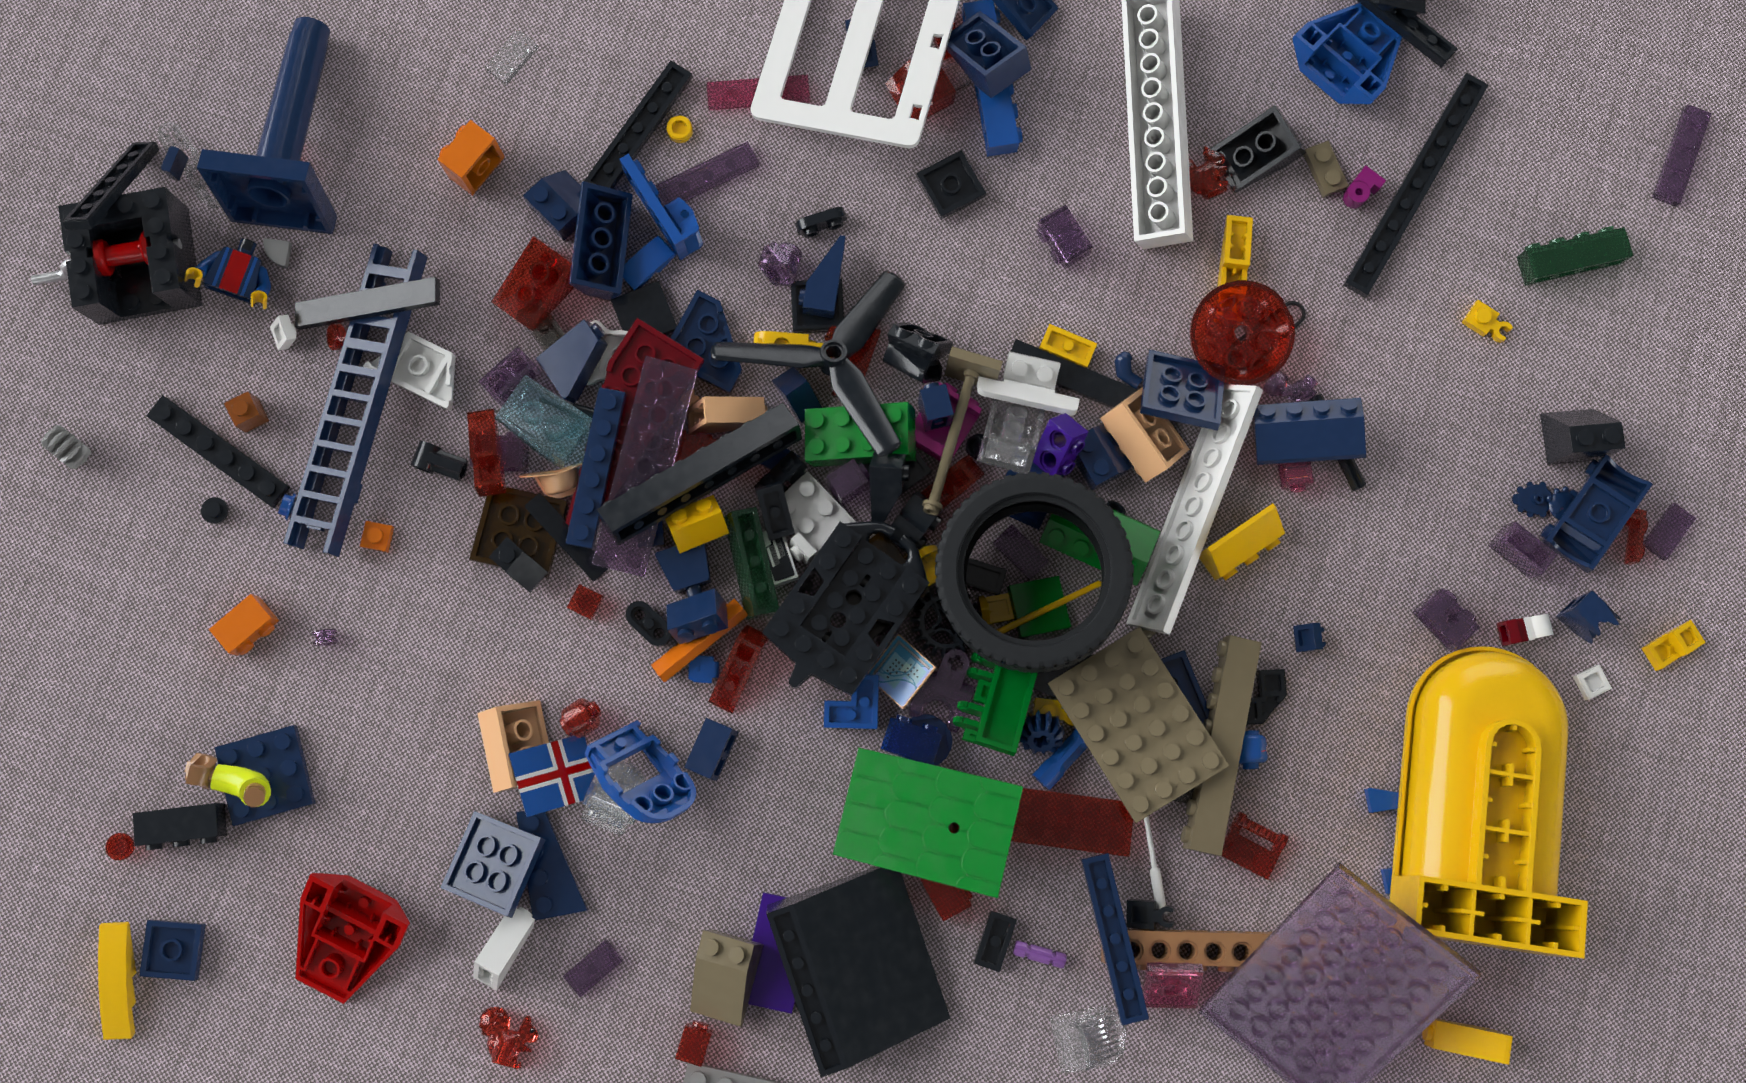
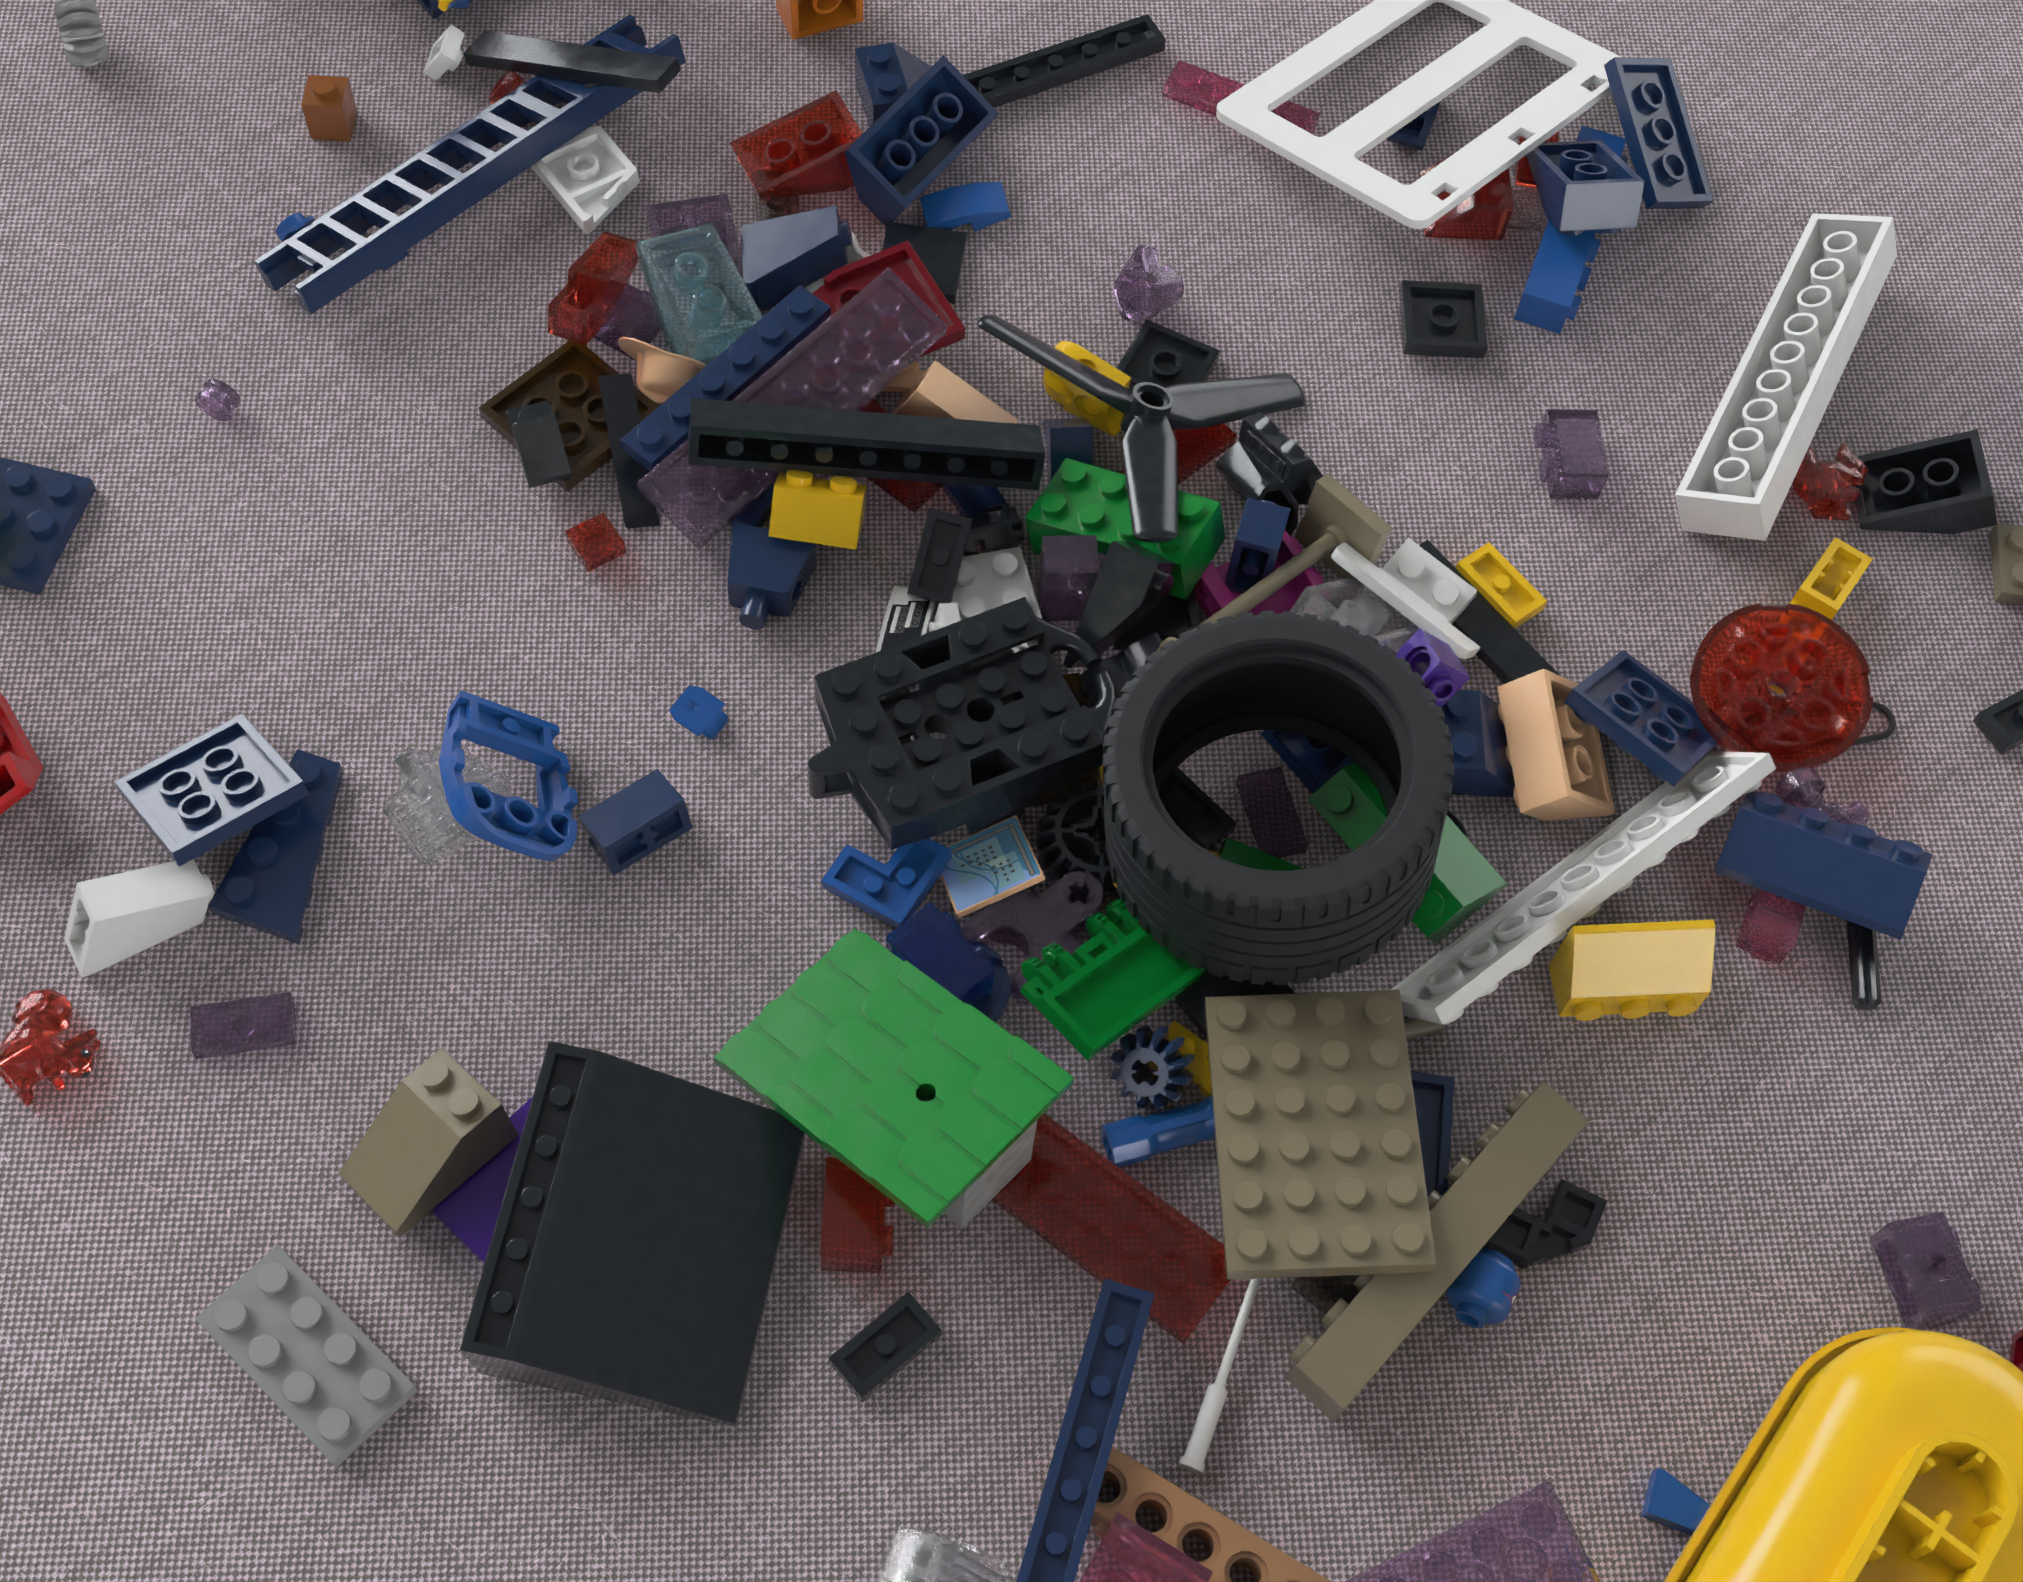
camera: 30 degrees right, 20 degrees down
(214, 510) = (201, 195): black plate -> none
(218, 451) = (259, 134): black plate -> none
(244, 625) = (127, 330): orange brick -> none
(376, 536) = (380, 327): orange plate -> none
(432, 459) = (522, 276): black piece -> none
(507, 731) = (365, 664): light nougat slope -> none
(552, 774) = (375, 716): sticker -> none
(580, 718) = (480, 673): clear red head -> none
(649, 624) = (666, 617): black plate -> none
(674, 220) = (1029, 163): blue plate -> none
(679, 129) = (1109, 94): yellow tile -> none
(684, 653) = (719, 671): orange tile -> none
(694, 1043) = (309, 1219): clear red brick -> none
(697, 616) = (737, 630): dark blue brick -> none
(698, 331) = (980, 357): dark blue plate -> none
(709, 174) = (1113, 157): clear purple tile -> none
(738, 668) = (751, 735): clear red slope -> none
(751, 563) = (865, 597): clear green brick -> none
(812, 224) = (1233, 271): black plate -> none
(823, 285) = (1193, 332): dark blue slope -> none
(1039, 954) = (946, 1414): medium lavender axle -> none
(1124, 370) = (1570, 656): dark blue arm -> none
(1144, 915) = (1163, 1448): black plate -> none
(1249, 854) = (1393, 1458): clear red plate -> none
(1308, 637) = (1673, 1173): dark blue tile -> none

